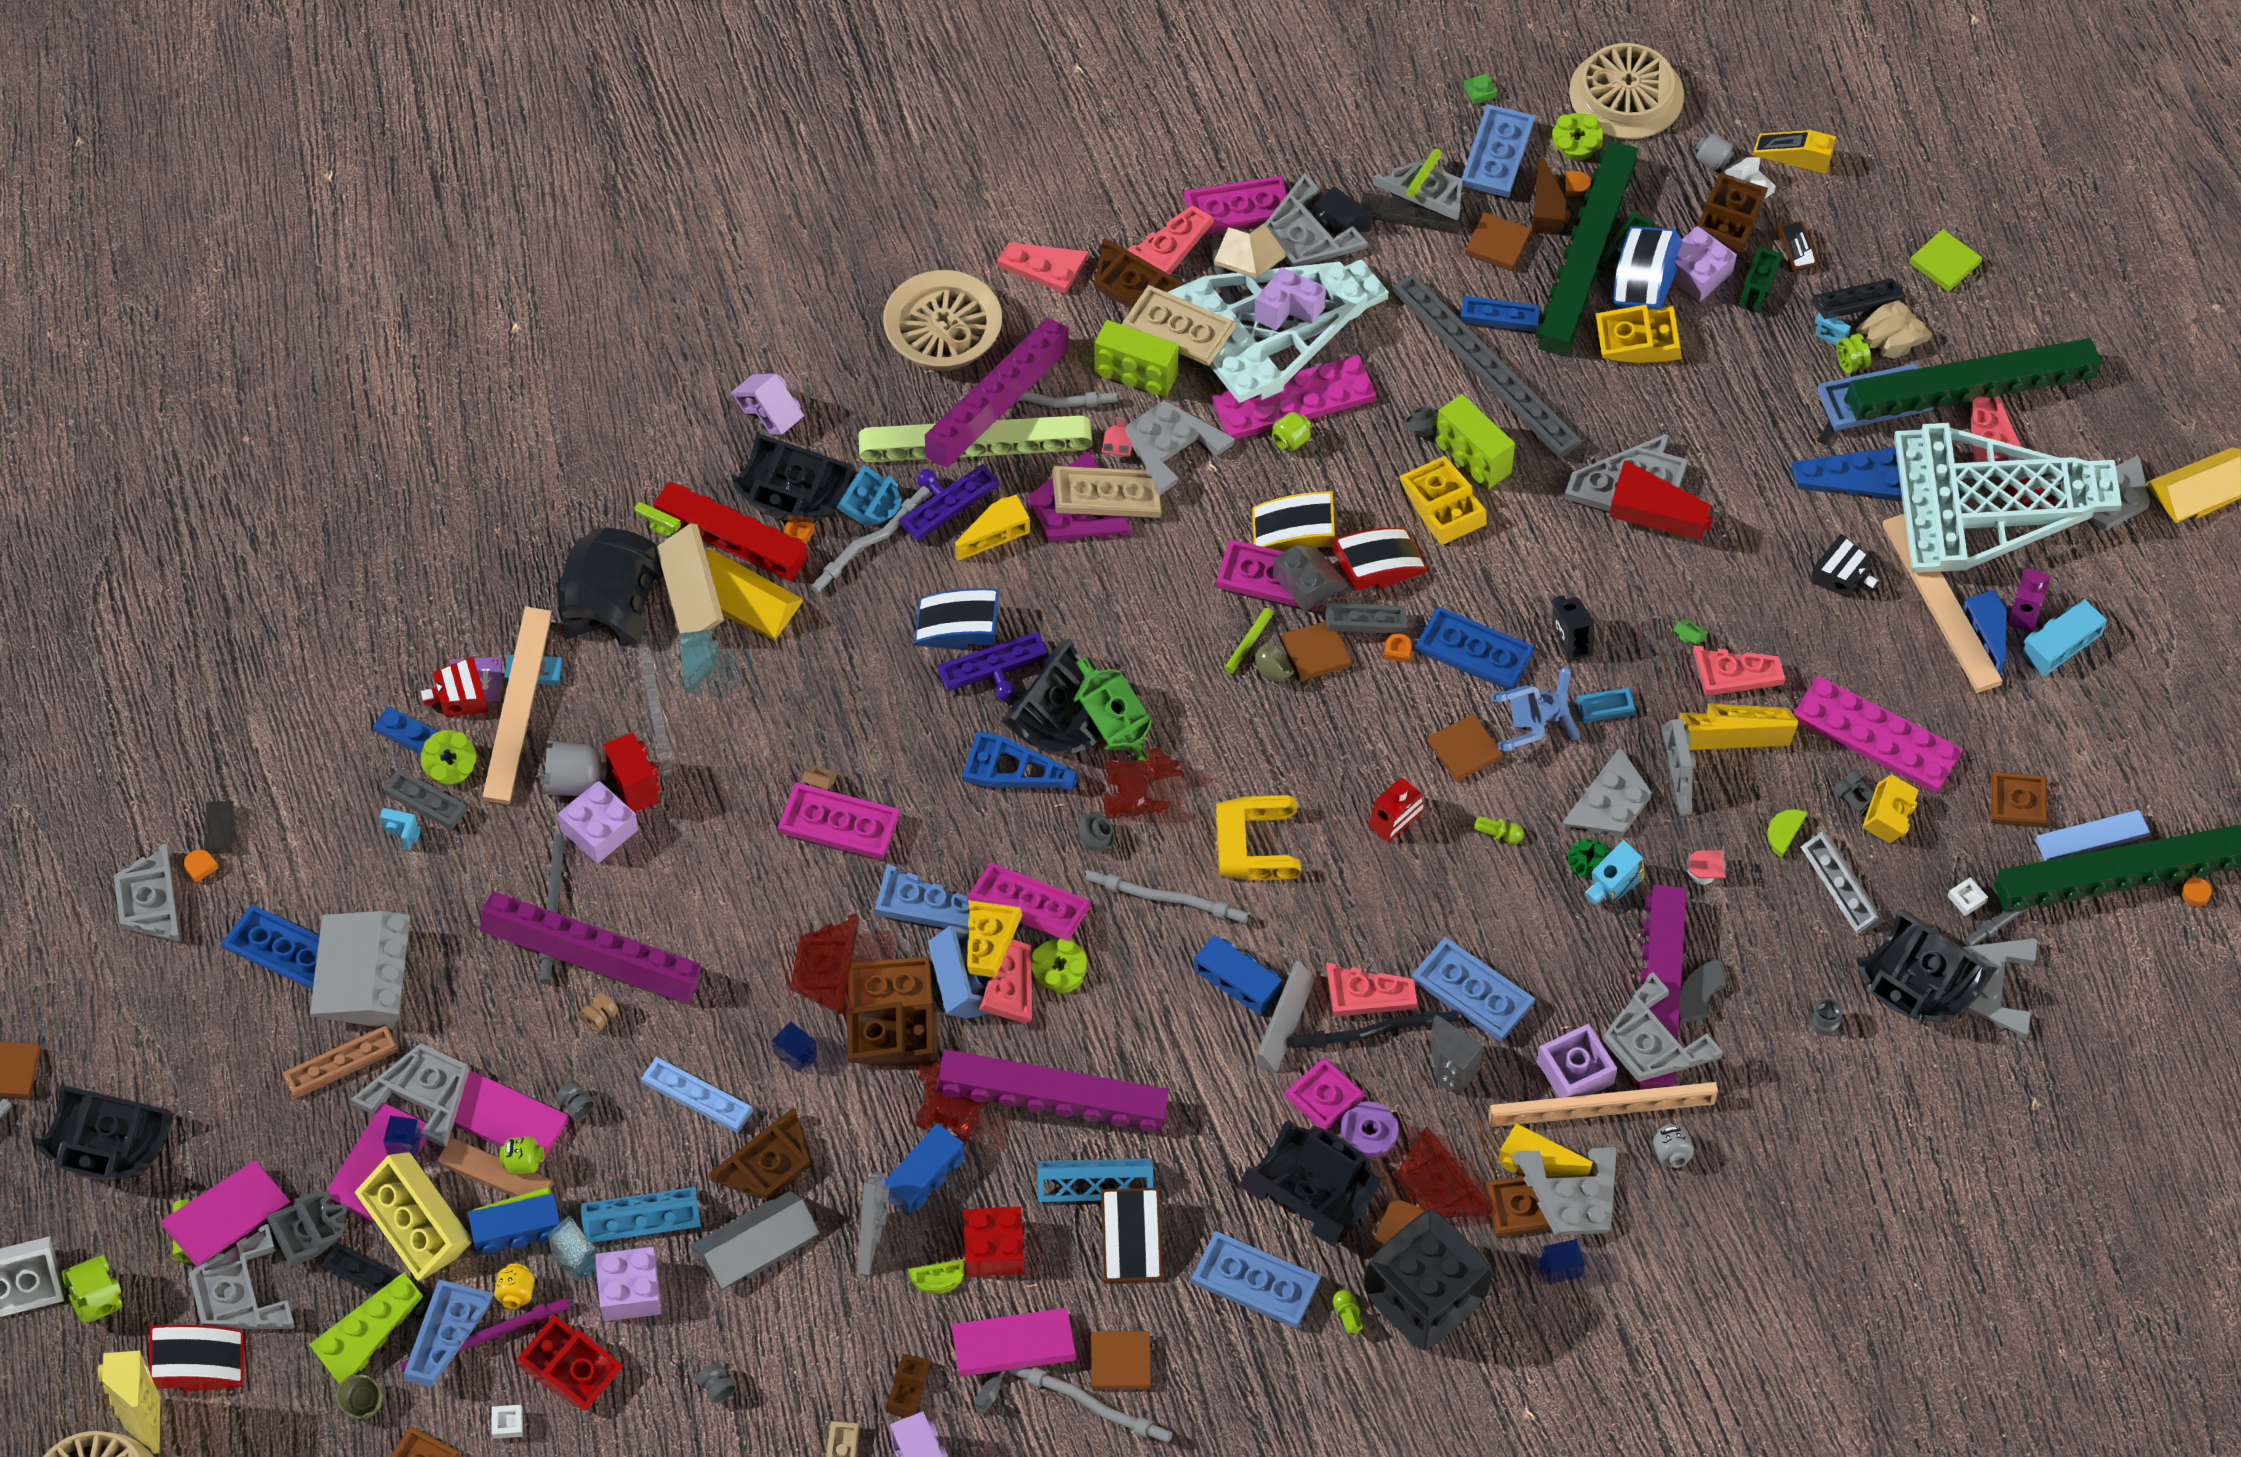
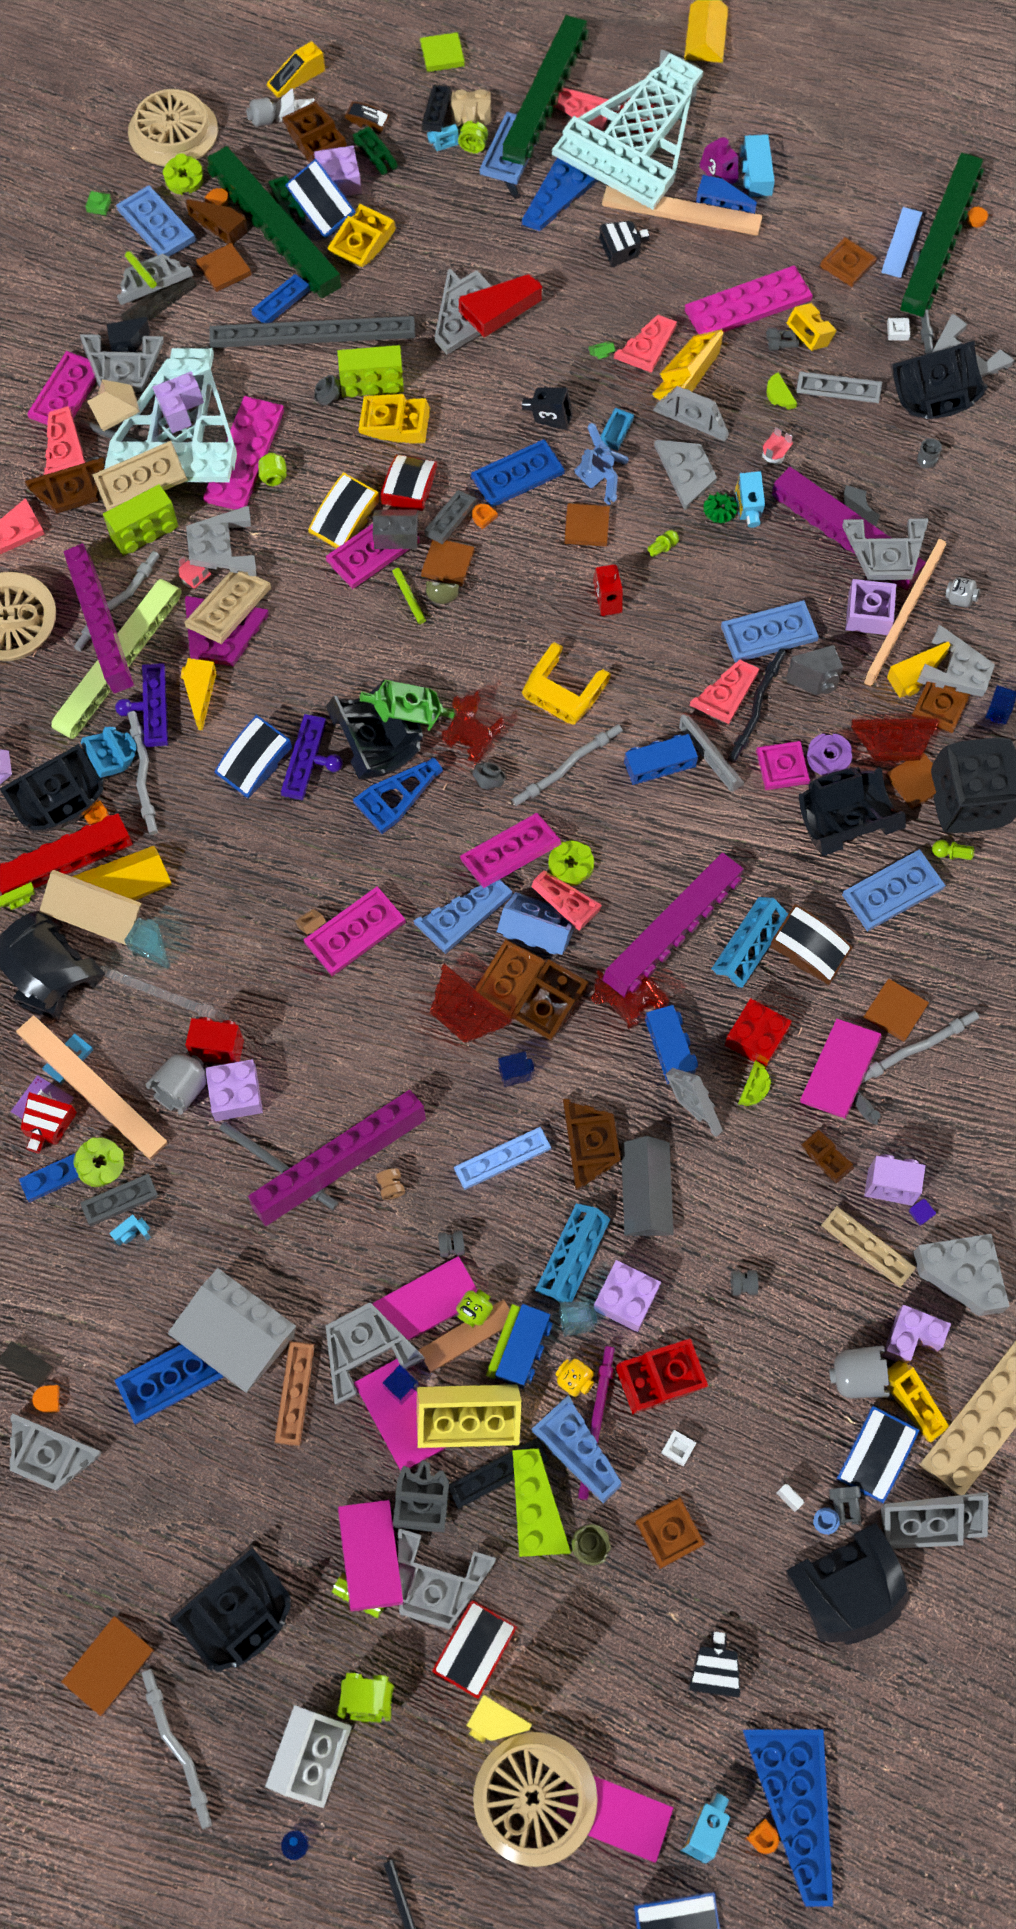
camera: 55 degrees left, 10 degrees up
(990, 935) = (527, 888): yellow wing -> none

